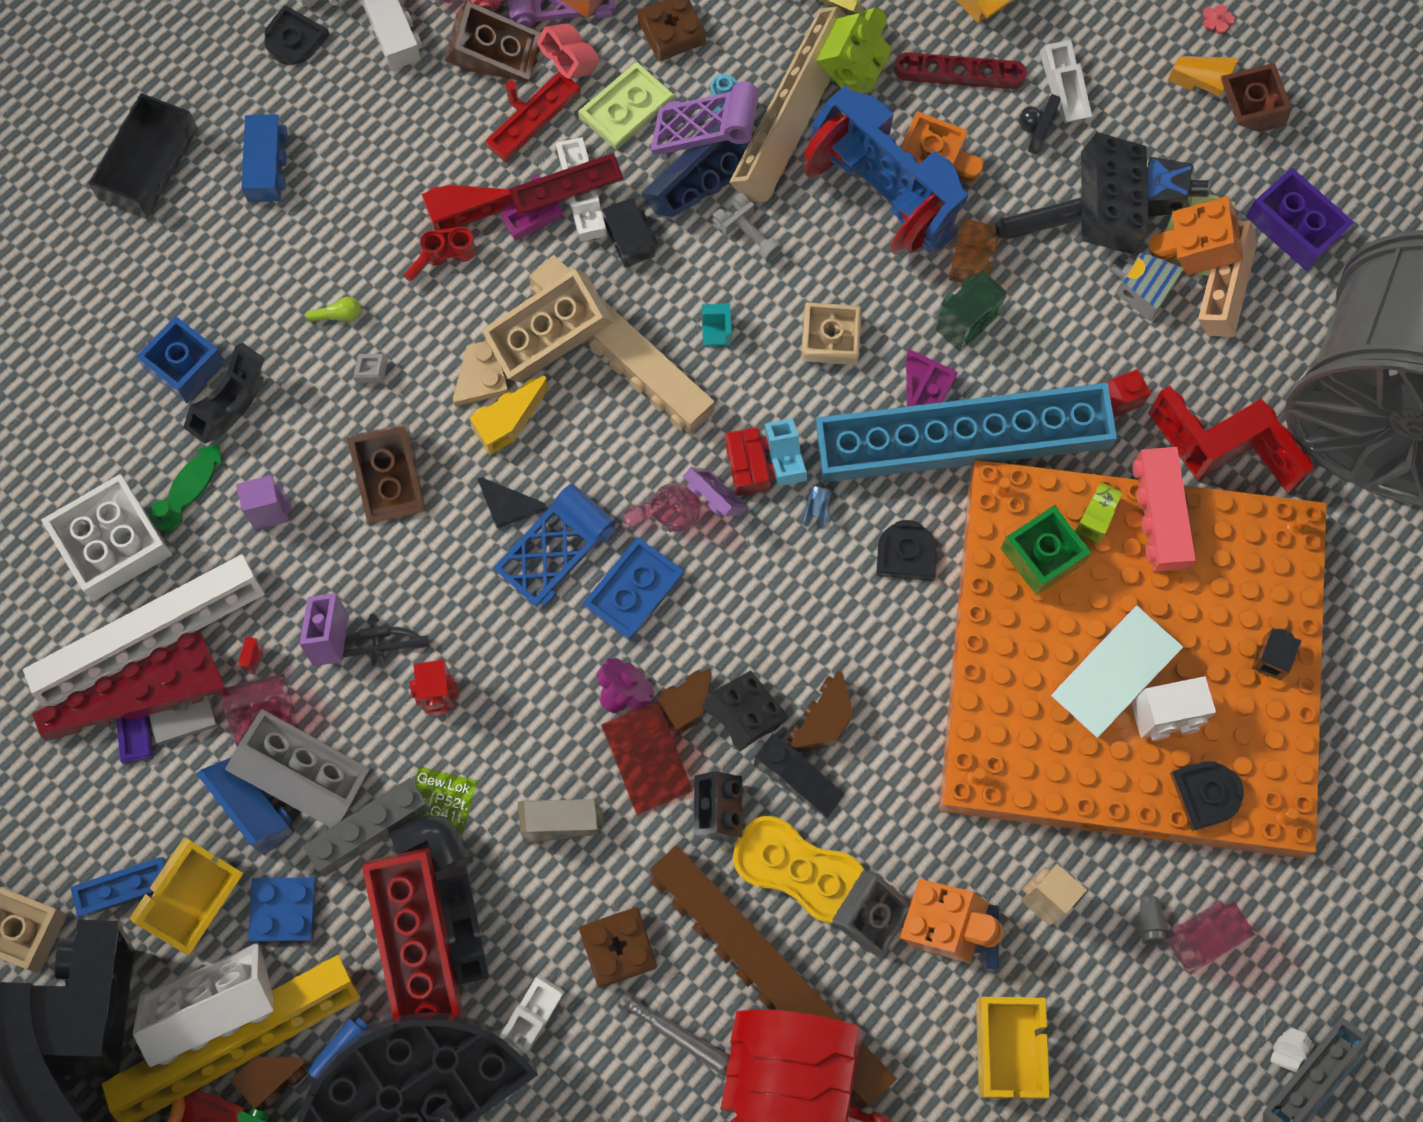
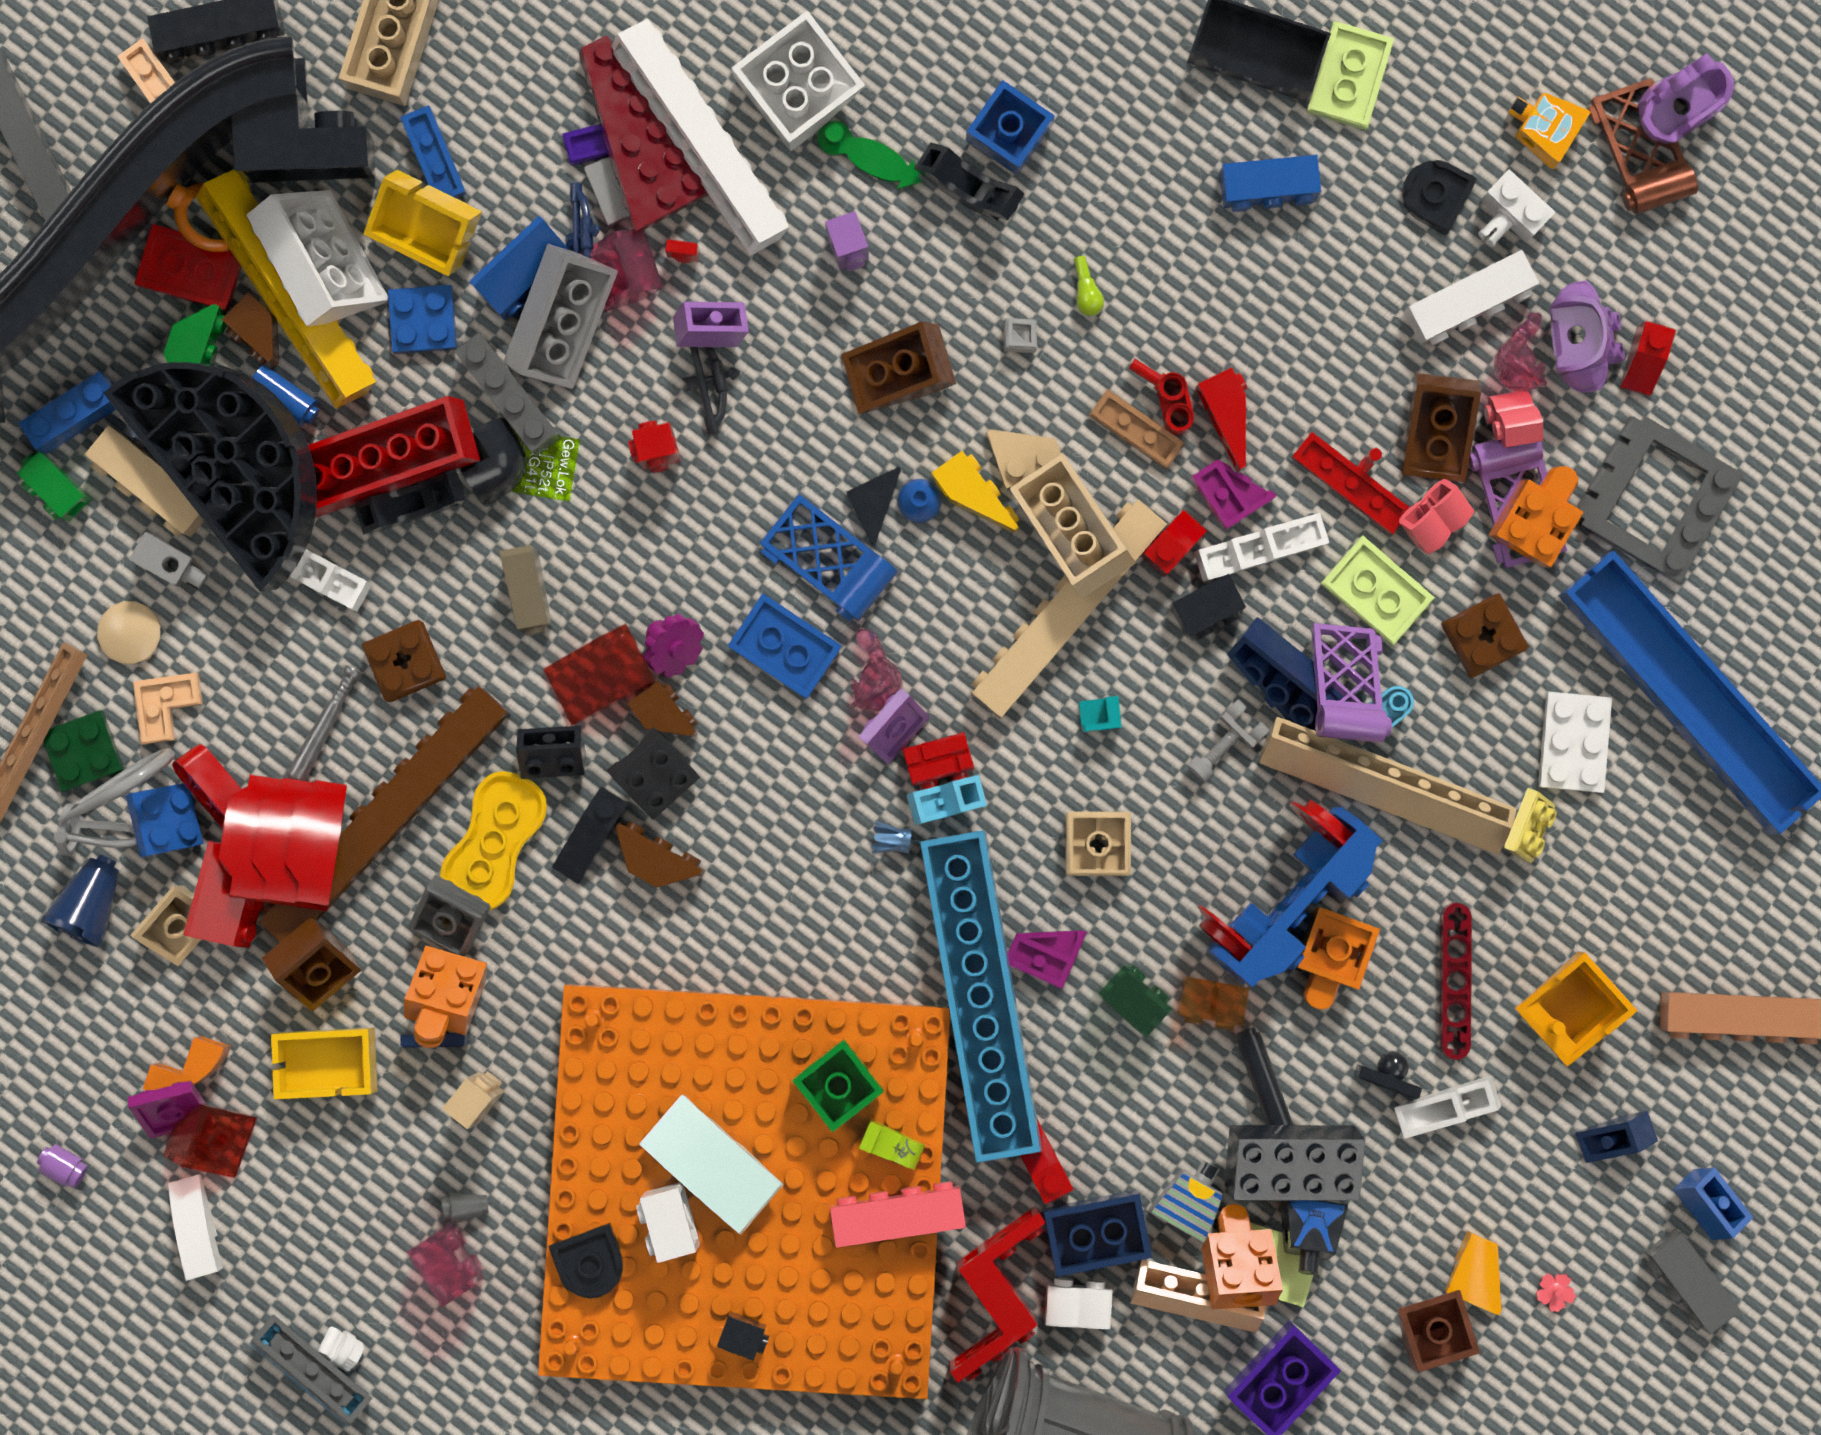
camera: 85 degrees right, 15 degrees up
(184, 89) = (1350, 75): none -> yellowish green tile
(219, 738) = (583, 227): none -> dark blue piece
(466, 281) = (1136, 429): none -> medium nougat tile
(510, 465) = (919, 500): none -> blue brick
(566, 184) = (1256, 530): dark red tile -> none
(573, 253) = (1173, 543): none -> red slope
(856, 50) = (1459, 854): lime brick -> none
(907, 552) = (849, 939): black tile -> none
(914, 1053) = (311, 964): none -> reddish brown brick
(1175, 353) = (1097, 1233): none -> dark blue brick
(1236, 378) = (1078, 1304): none -> white brick

